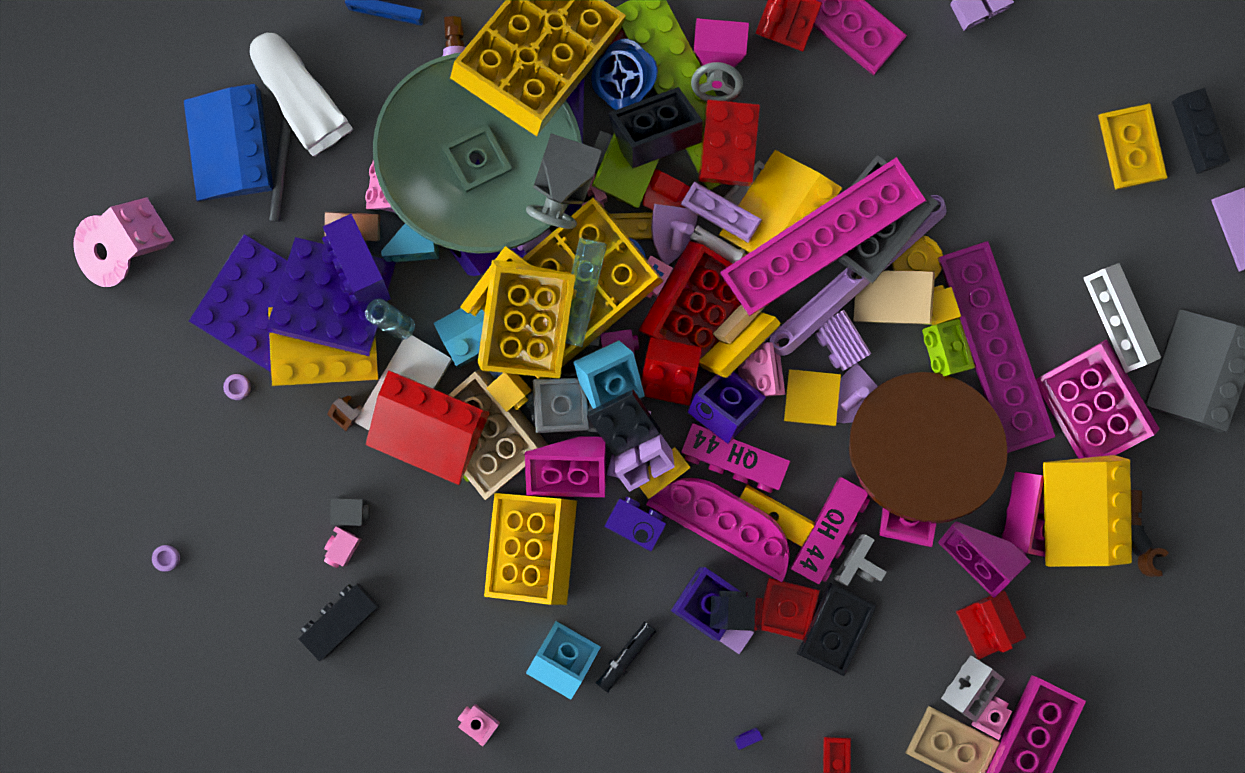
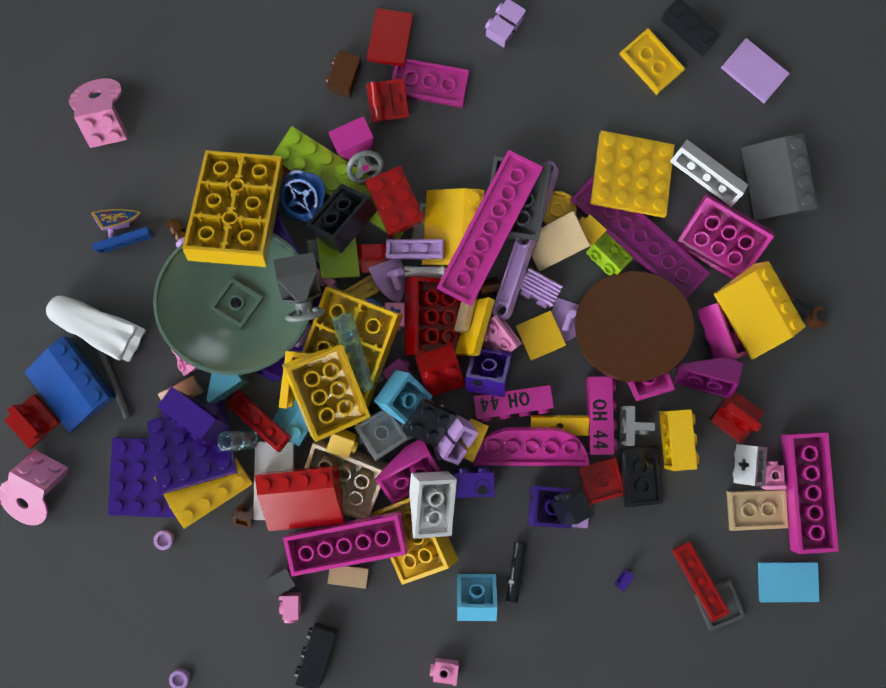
camera: 30 degrees left, 0 degrees up
(161, 162) = (31, 421): none -> red bracket
(425, 310) = (258, 421): none -> red tile
(427, 550) = (349, 576): none -> tan tile
(448, 509) = (346, 543): none -> dark pink brick
(574, 519) = (432, 503): none -> white slope
(785, 304) = (490, 285): none -> reddish brown tile
(905, 609) = (678, 439): none -> yellow brick
(1030, 268) = (632, 174): none -> yellow plate

